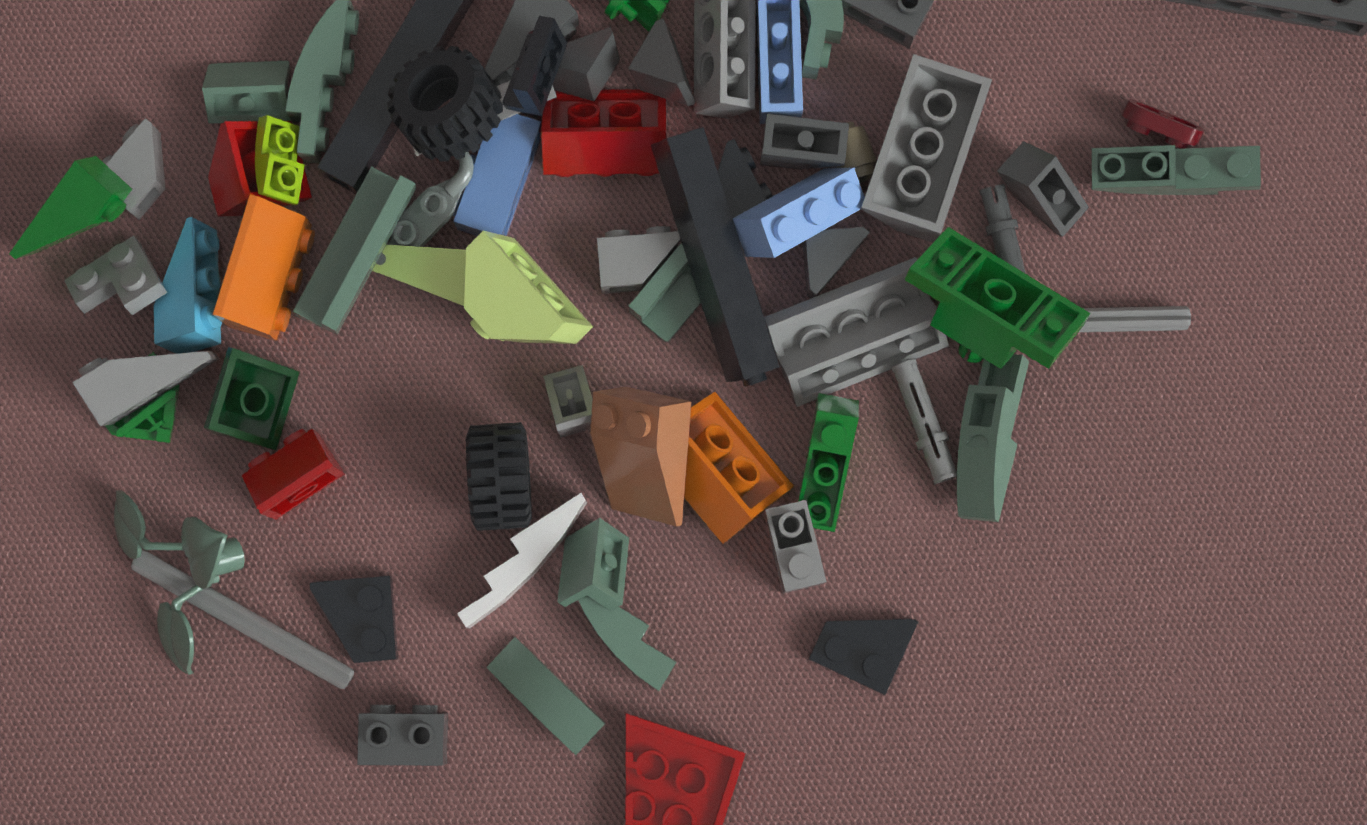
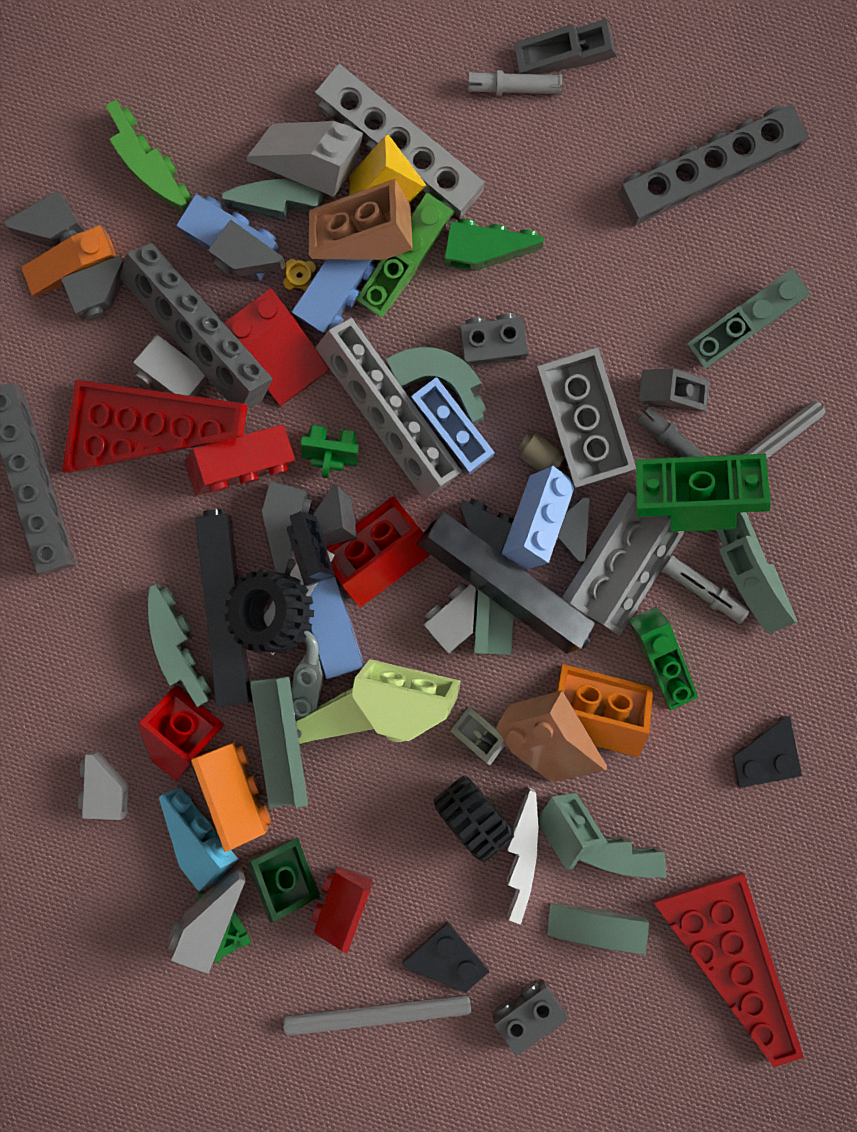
camera: 30 degrees left, 5 degrees up
(81, 200) = (85, 841): green slope -> none
(119, 271) = (144, 858): light grey plate -> none
(208, 556) = (327, 1000): sand green plant -> none
(246, 91) = (133, 687): sand green panel -> none
(276, 160) = (189, 724): lime slope -> none
(659, 67) = (382, 486): dark grey slope -> none
(795, 547) = (685, 728): light grey slope -> none
(803, 142) = (508, 470): dark grey slope -> none
(1177, 130) = (728, 293): dark red plate -> none

